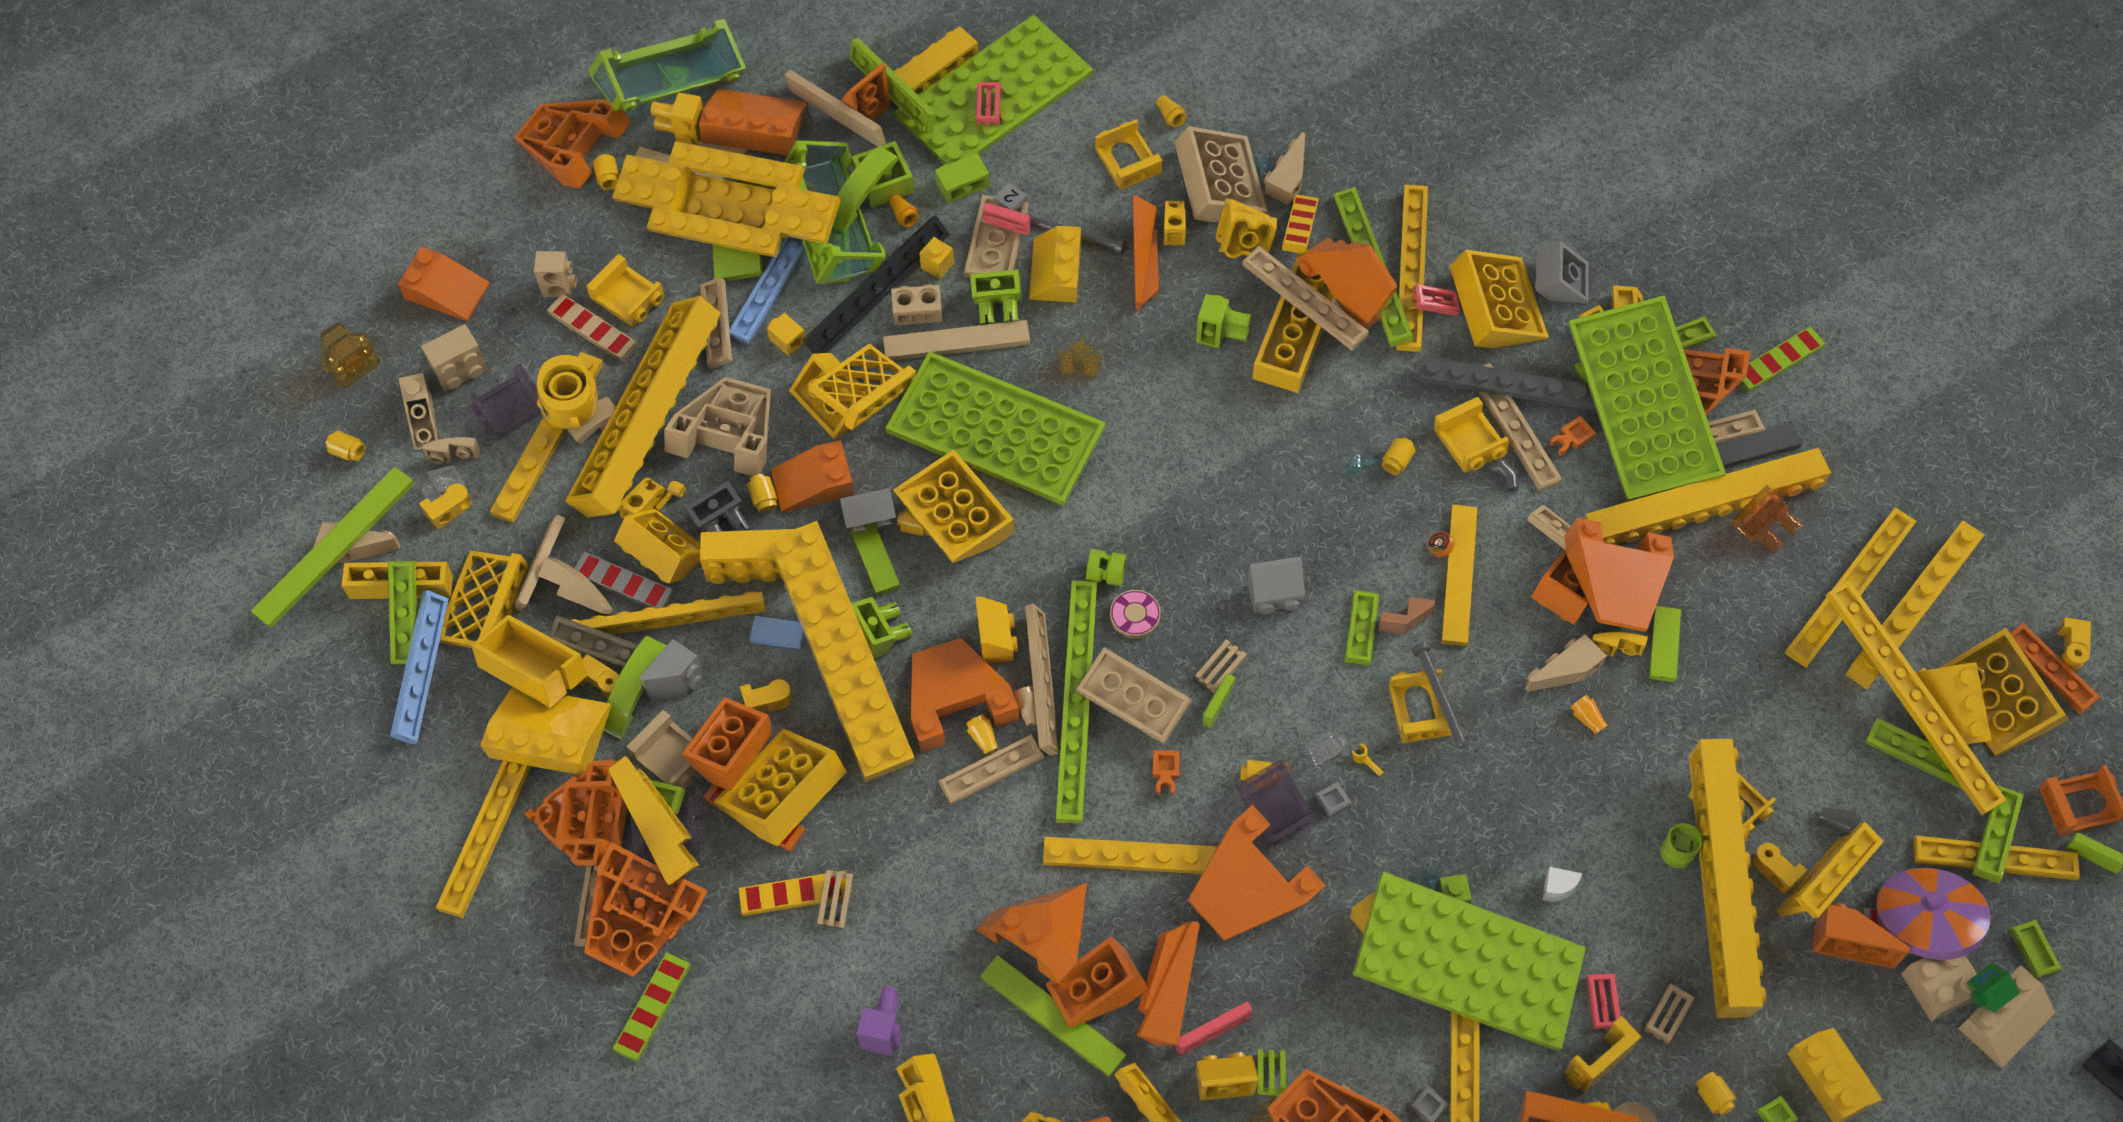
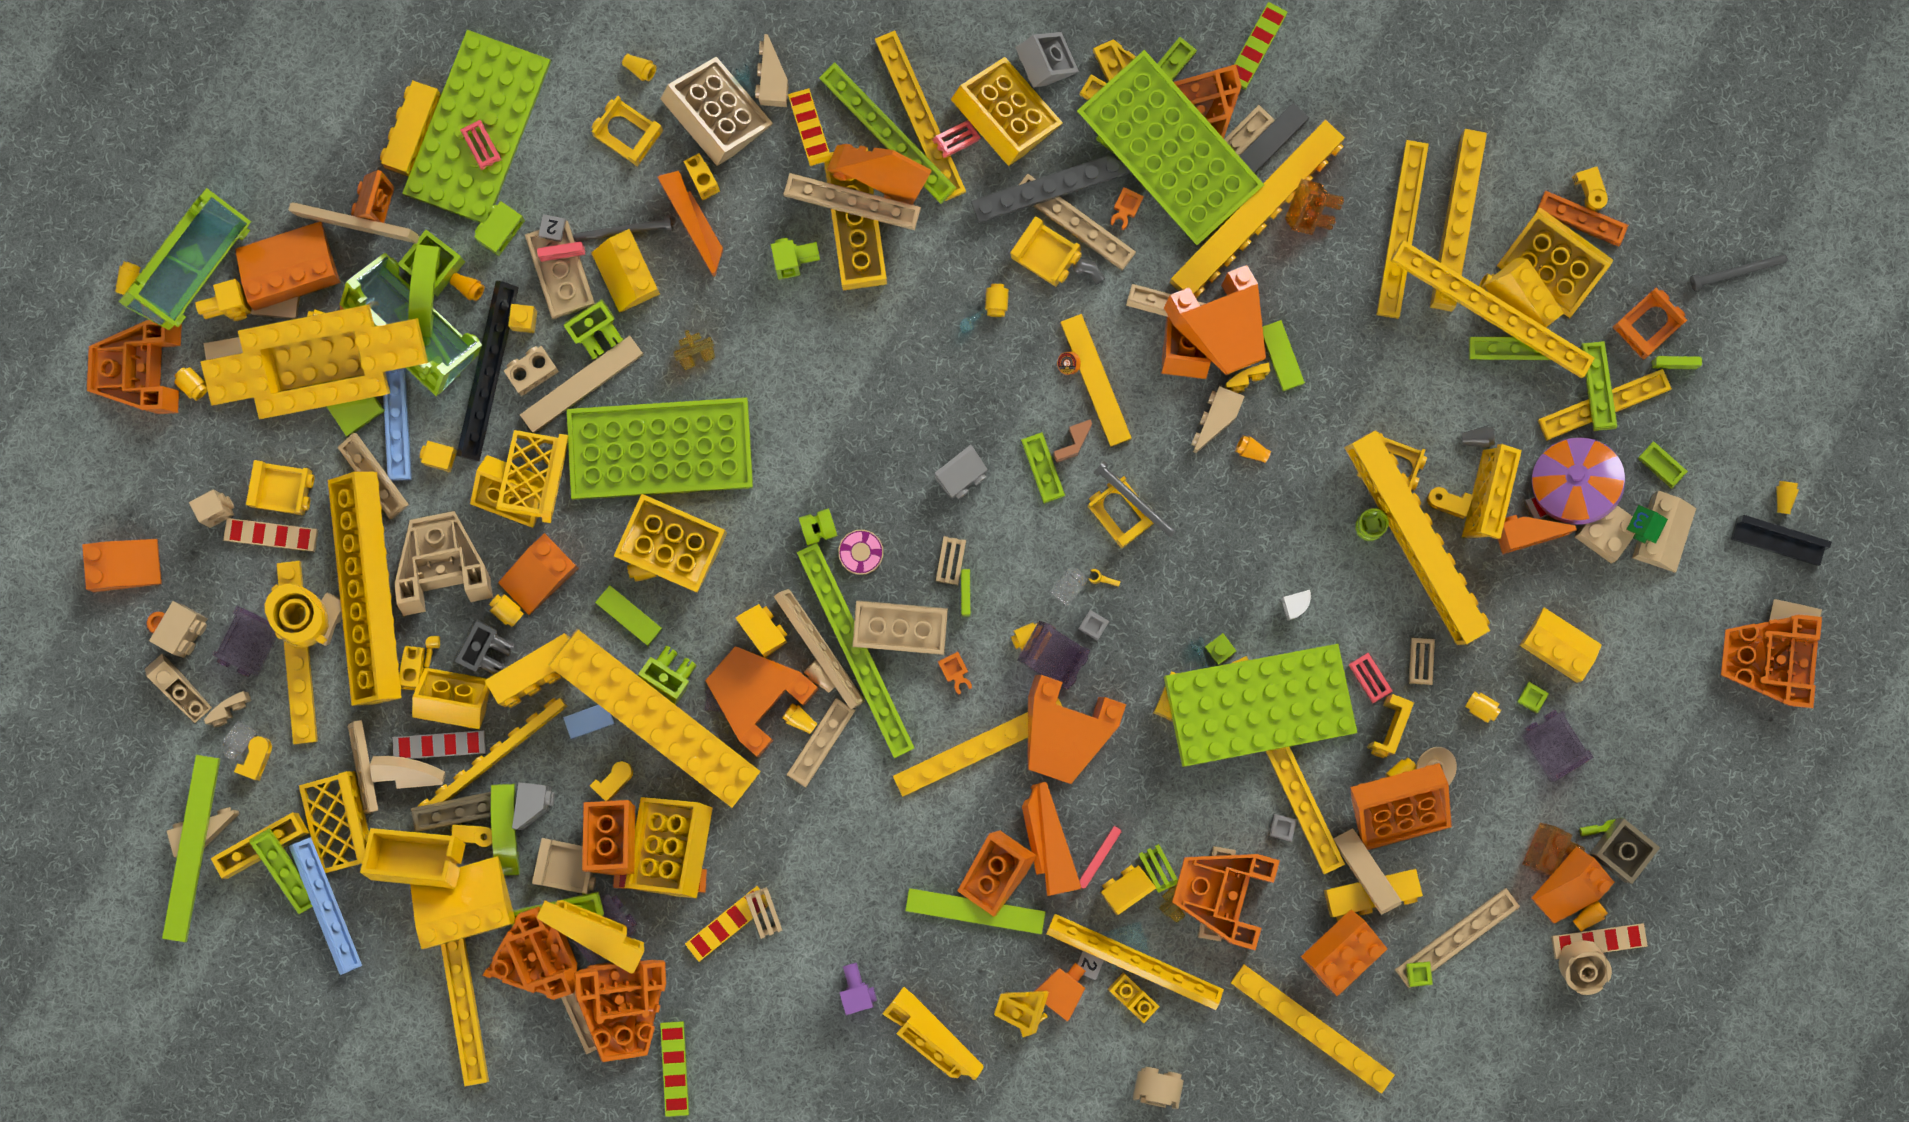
camera: 30 degrees left, 20 degrees up
(345, 446) = (137, 753): yellow brick -> none
(347, 354) = (85, 674): clear yellow piece -> none
(867, 509) = (599, 579): light grey slope -> none
(898, 90) = (395, 174): lime tile -> none
(1044, 928) = (932, 851): orange wedge -> none
(1244, 229) = (767, 158): yellow piece -> none

